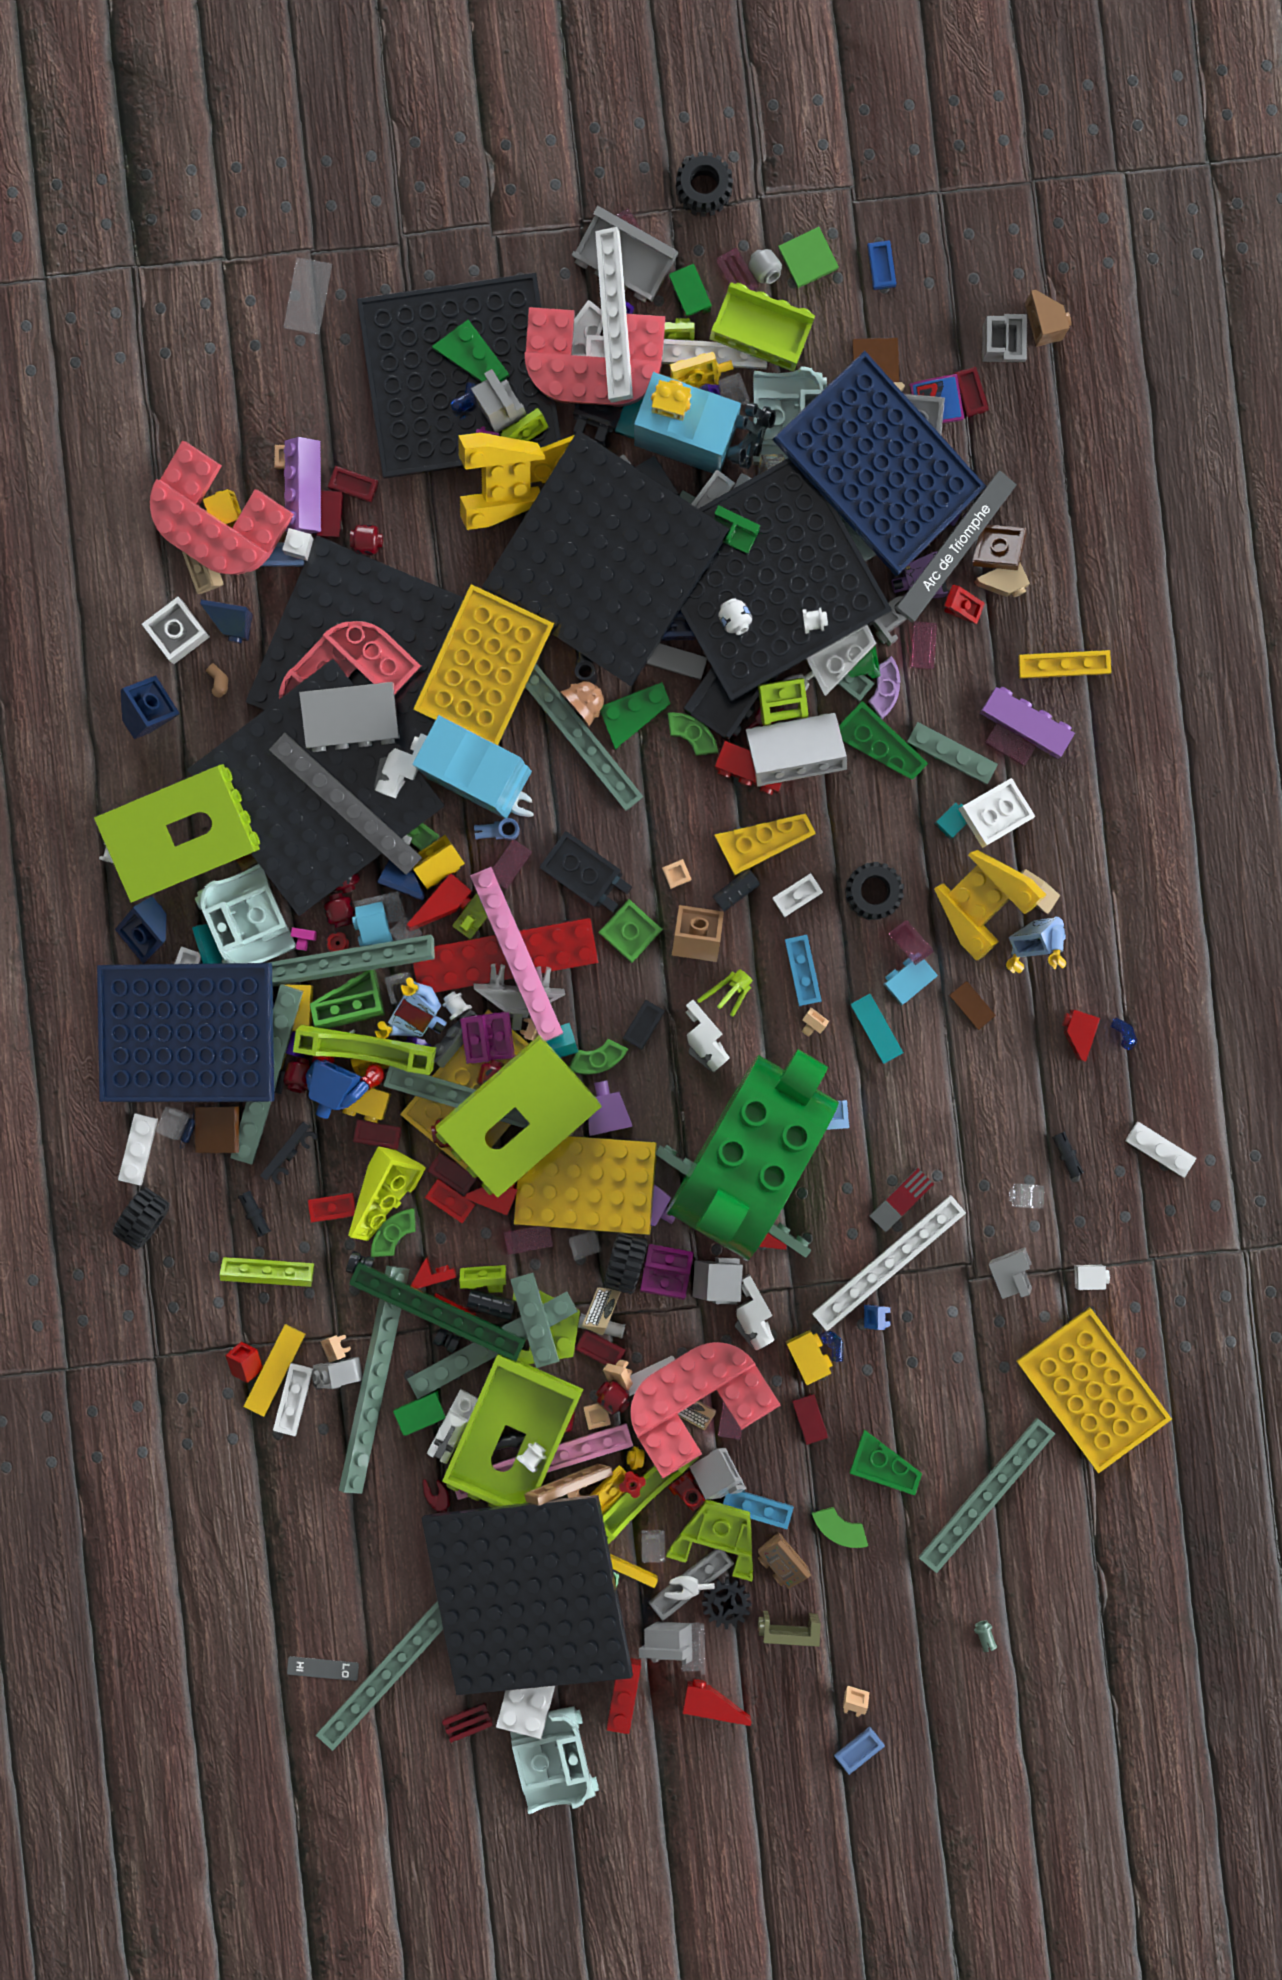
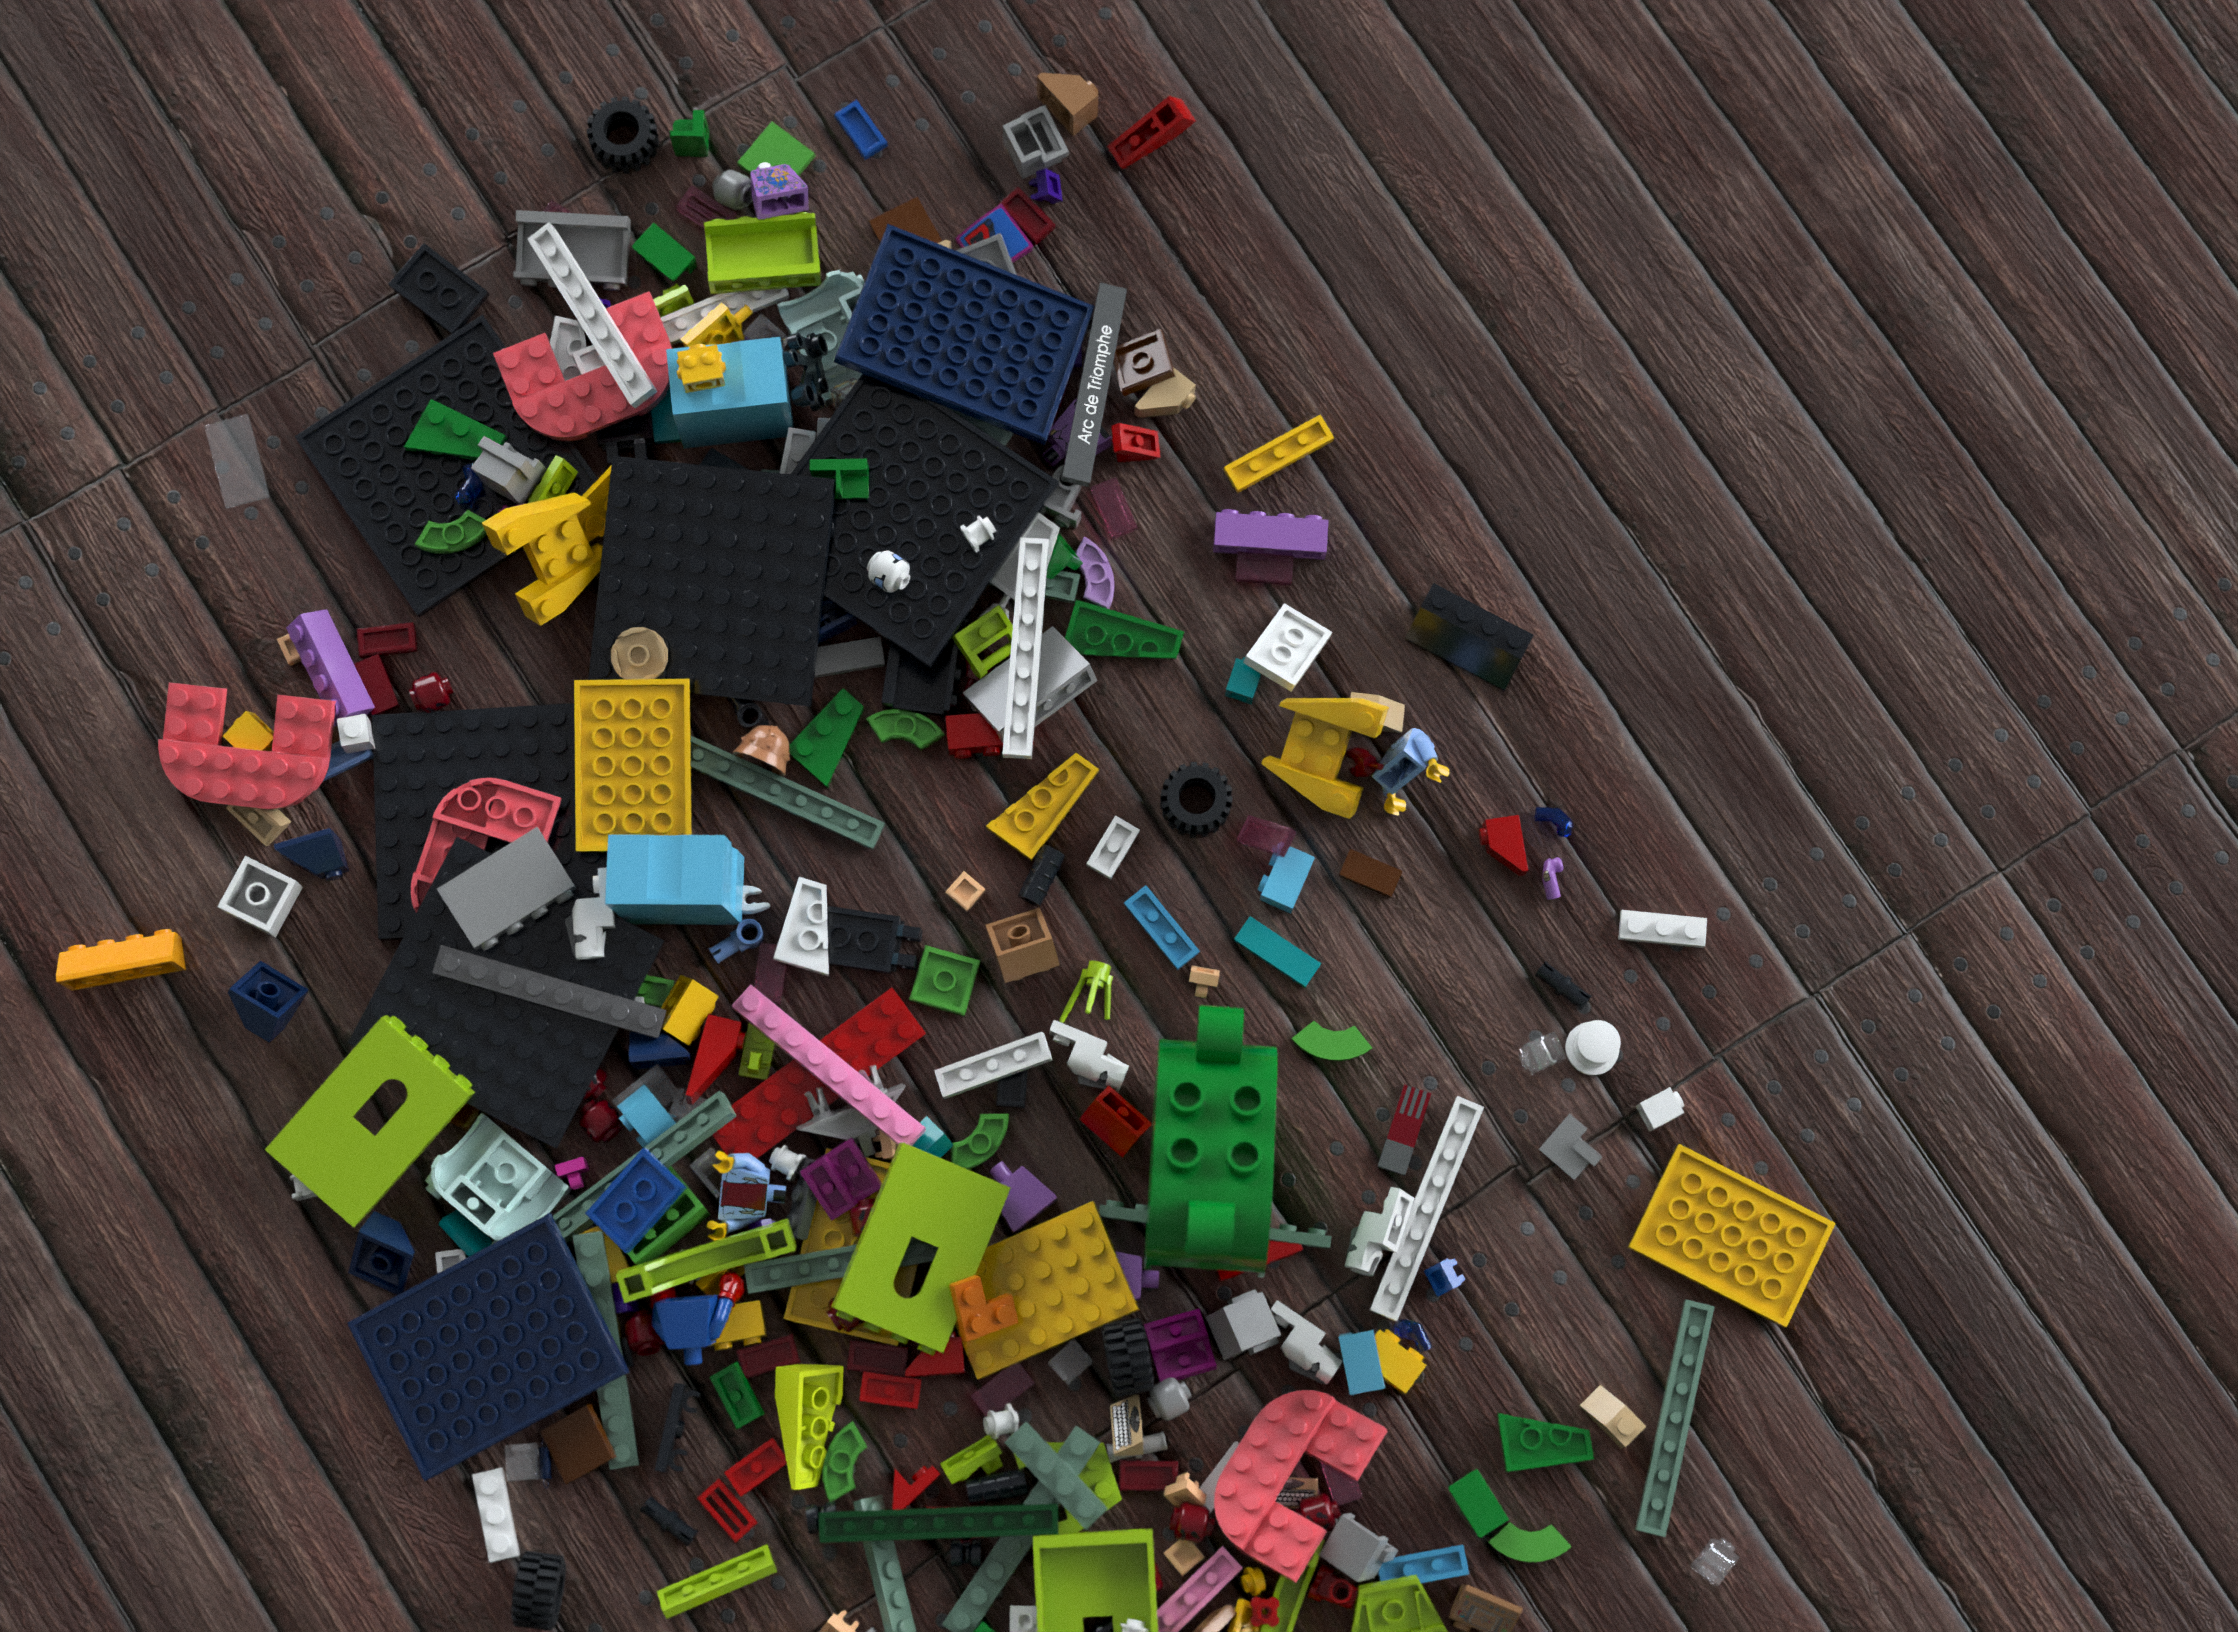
camera: 30 degrees left, 10 degrees down
(57, 628) = (120, 961): none -> light orange slope
(220, 680) = (338, 929): medium nougat arm -> none
(301, 1205) = (743, 1529): none -> red tile
(333, 938) = (609, 1155): red plate -> none
(335, 982) = (635, 1200): none -> blue tile
(342, 1151) = (737, 1395): none -> green plate
(436, 431) = (452, 536): none -> bright green tile
(513, 237) = (438, 289): none -> black plate
(516, 1262) = (1001, 1422): none -> white brick
(527, 587) = (639, 654): none -> tan tile
(534, 1183) = (975, 1314): none -> orange plate
(549, 846) = (805, 932): none -> white wing
(634, 1010) = (993, 1065): none -> white plate
(640, 1305) = (1169, 1399): none -> light grey head
(700, 1093) = (1115, 1121): none -> red brick
(704, 1435) = (1319, 1511): none -> dark red head
(753, 209) = (691, 137): none -> green panel
(787, 1348) = (1361, 1362): none -> medium azure panel
(796, 284) = (777, 191): none -> medium lavender torso
(806, 722) = (1025, 648): none -> white plate
(810, 1418) = (1430, 1433): dark red tile -> none
(818, 1485) = (1478, 1503): none -> green panel
(840, 1118) = (1287, 1071): light blue panel -> none
(845, 1263) = (1378, 1233): none -> white plate
(880, 1113) = (1331, 1044): none -> bright green tile
(943, 1473) = (1612, 1416): none -> tan slope
(952, 753) = (1205, 609): sand green plate -> none
(963, 1606) = (1715, 1560): none -> clear brick
(985, 1635) = (1757, 1580): sand green pin -> none
(998, 377) = (1048, 186): none -> dark purple tile
(1009, 923) = (1364, 761): none -> dark red hand
(1065, 1209) = (1593, 1047): none -> white piece
(1096, 373) = (1152, 131): none -> red slope
(1098, 1073) = (1549, 877): none -> medium lavender arm
(1132, 869) = (1468, 637): none -> black slope

